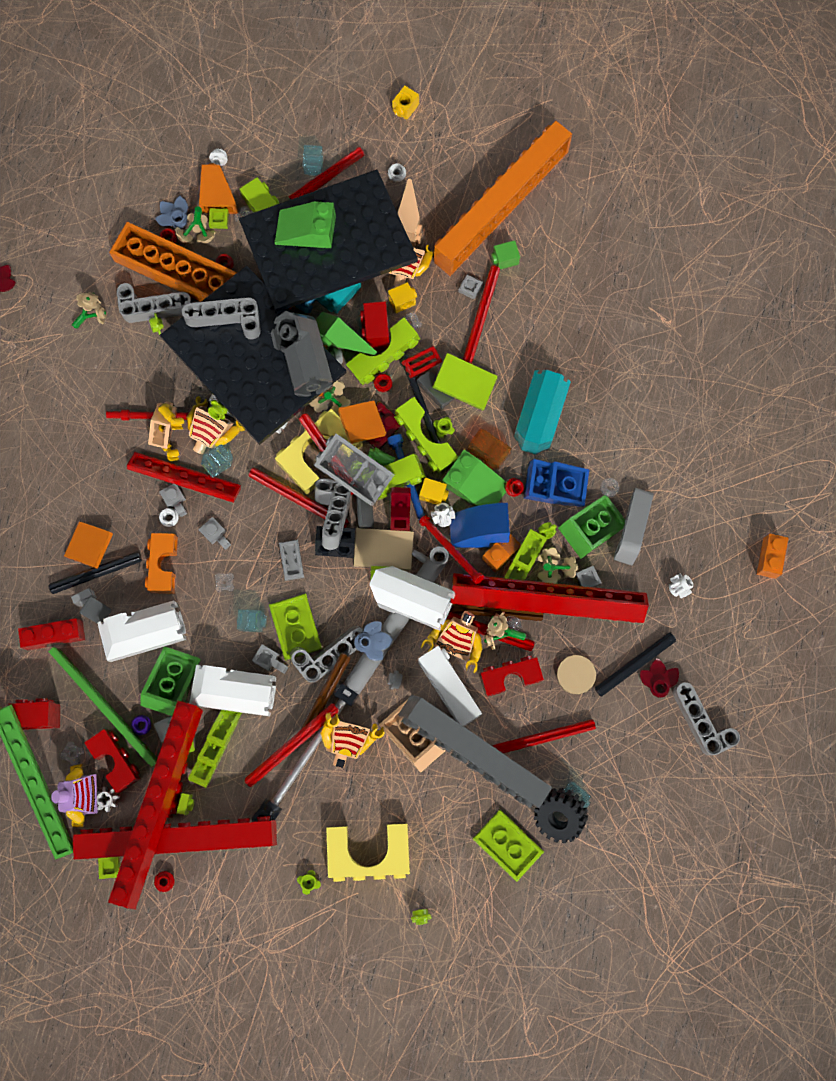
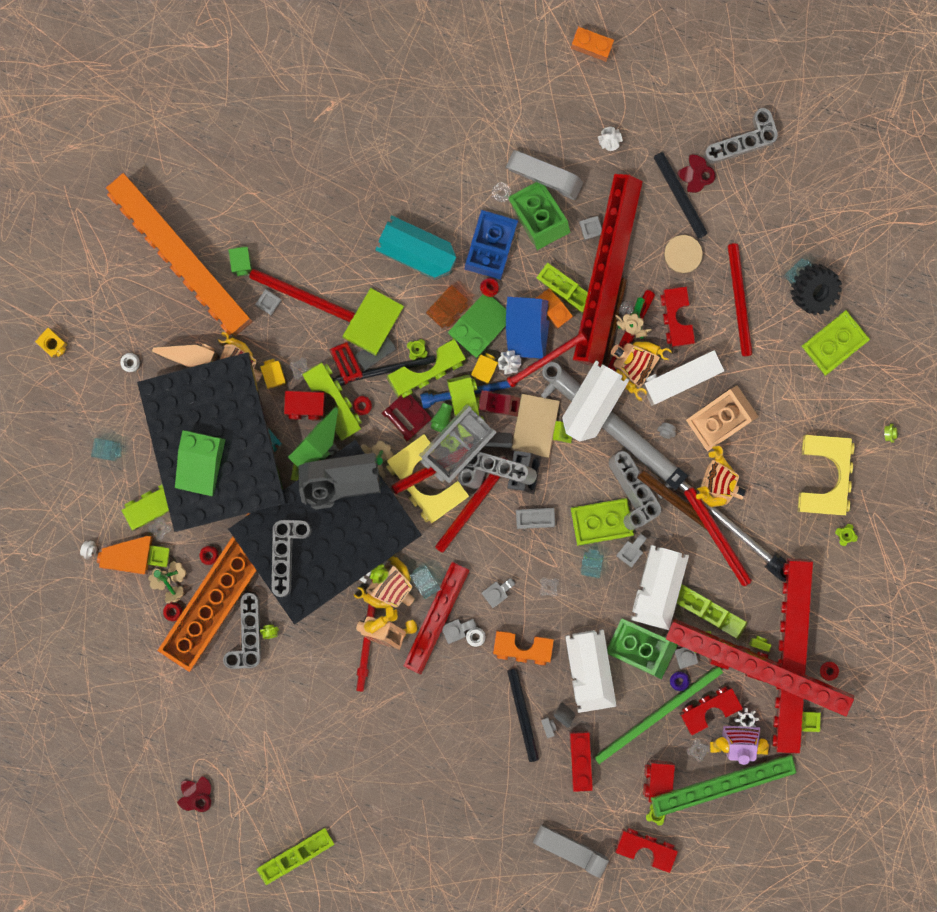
camera: 85 degrees left, 10 degrees up
(88, 545) = (494, 719): orange tile -> none
(89, 301) = (244, 698): tan plant -> none
(171, 212) = (143, 606): sand blue plate -> none
(329, 173) = (123, 437): red axle -> none
(361, 422) = (405, 431): orange tile -> none
(375, 639) = (629, 443): sand blue plate -> none
(475, 751) = (750, 363): dark grey brick -> none
(547, 530) = (538, 261): lime plate -> none
(550, 558) = (582, 265): tan plant -> none

